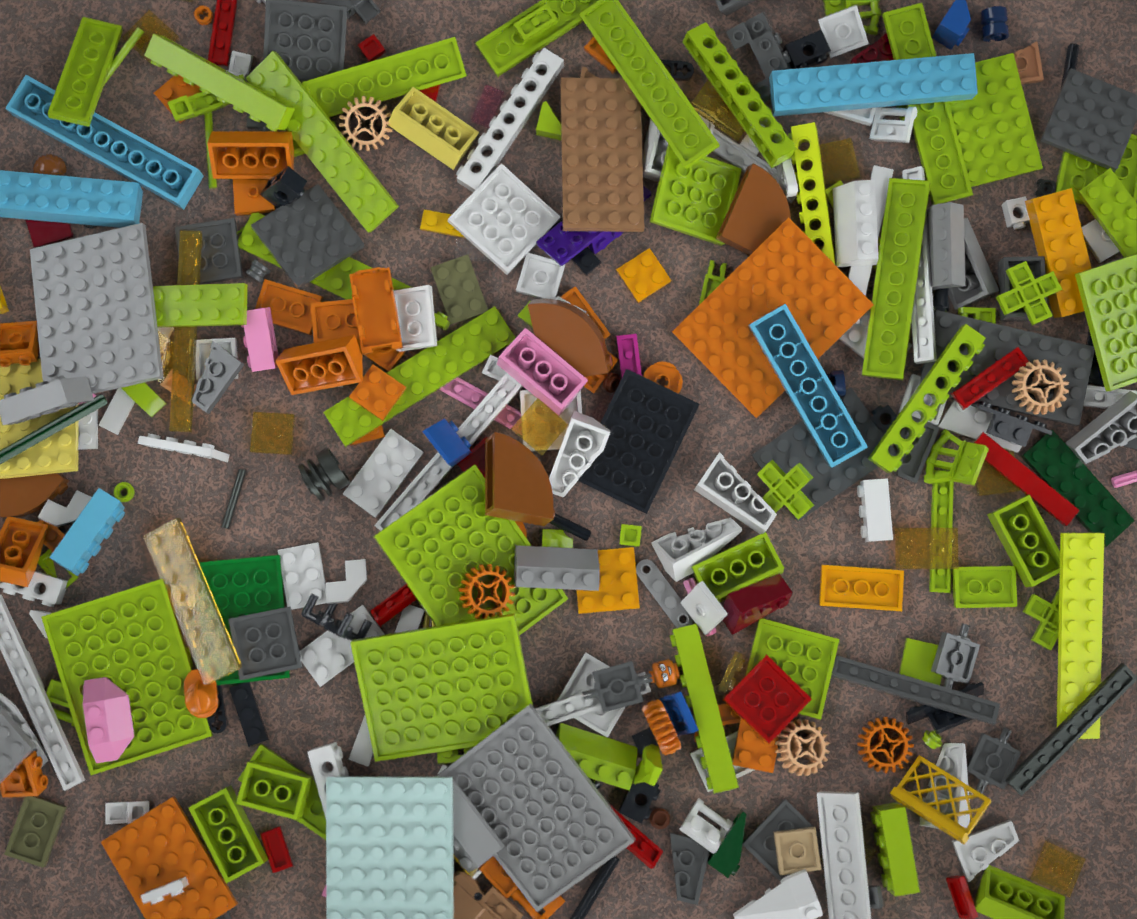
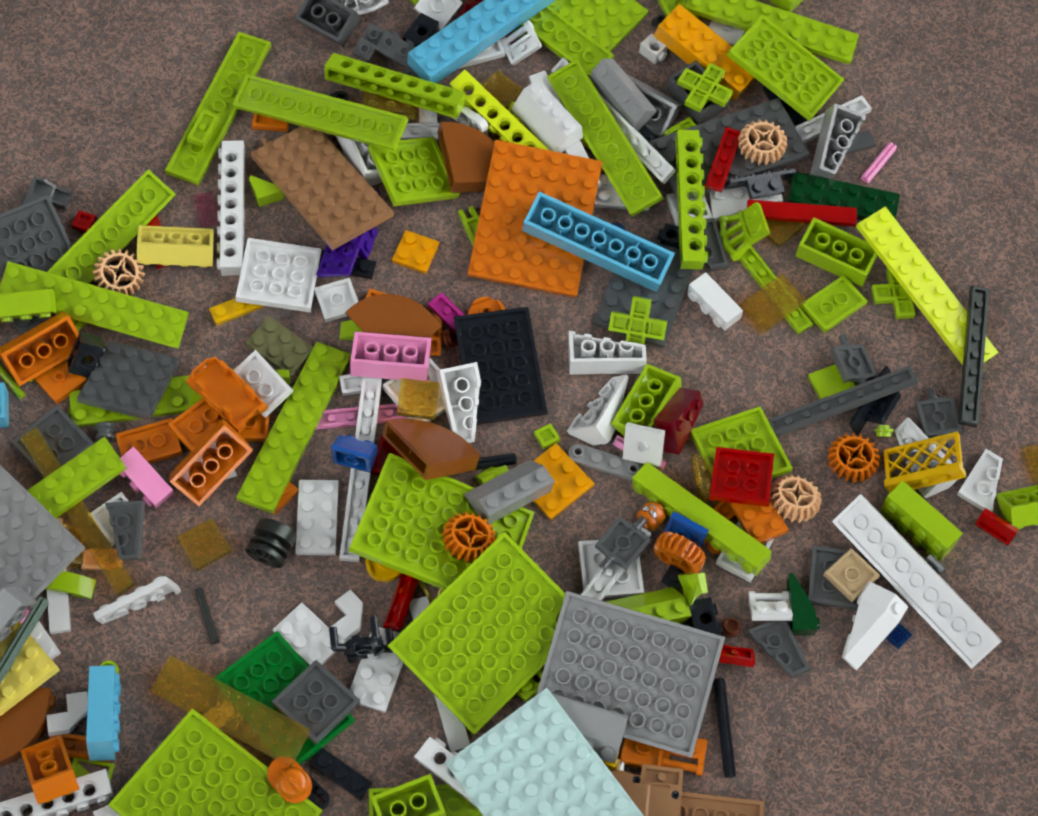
camera: 40 degrees left, 20 degrees down
(377, 392) = (271, 453): orange plate -> none
(861, 588) = (747, 361): light orange plate -> none

